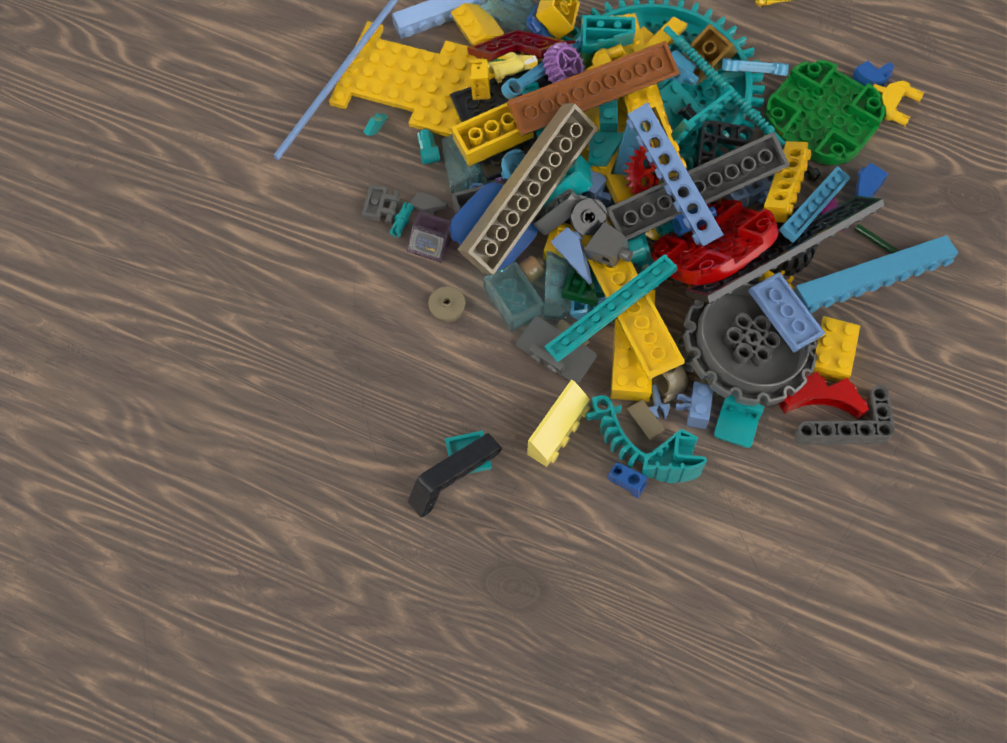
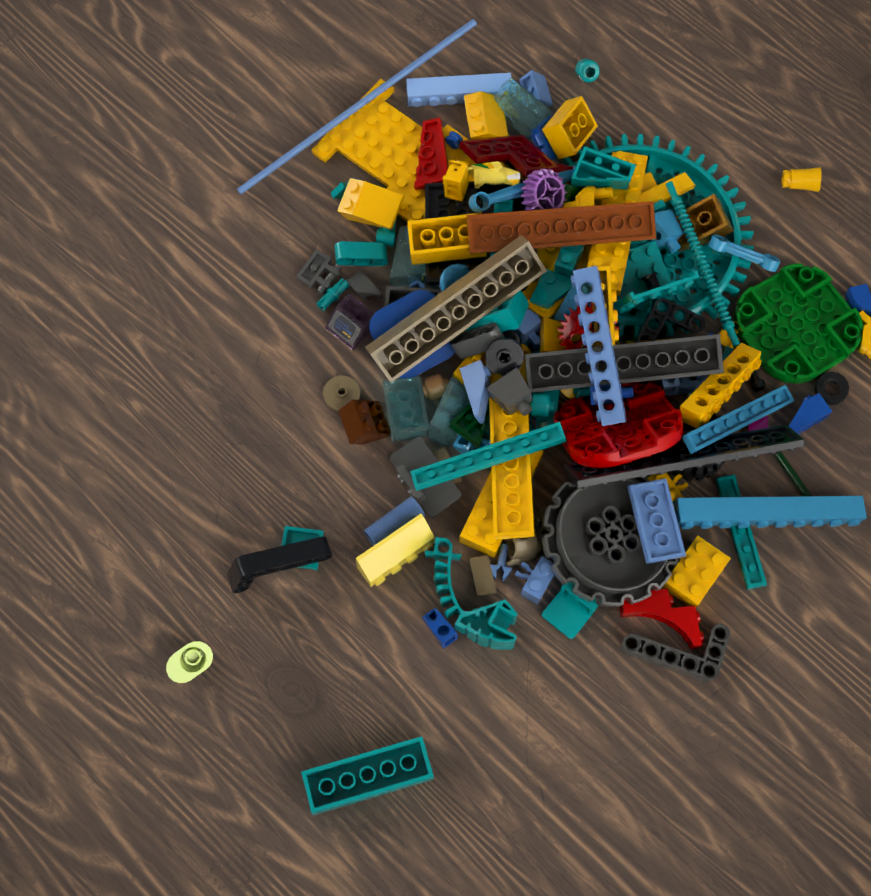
camera: 20 degrees right, 5 degrees up
(405, 129) = (370, 204): none -> yellow slope
(407, 594) = (189, 662): none -> yellowish green piece
(413, 175) = (360, 253): none -> teal beam
(445, 69) = (432, 154): none -> red wing
(459, 50) = (453, 140): none -> blue bush
(479, 321) = (364, 421): none -> reddish brown slope
(543, 401) = (388, 524): none -> medium blue piece
(620, 637) = (367, 775): none -> teal brick
(861, 310) = (743, 539): none -> teal tile
(879, 148) = (839, 380): none -> black tyre

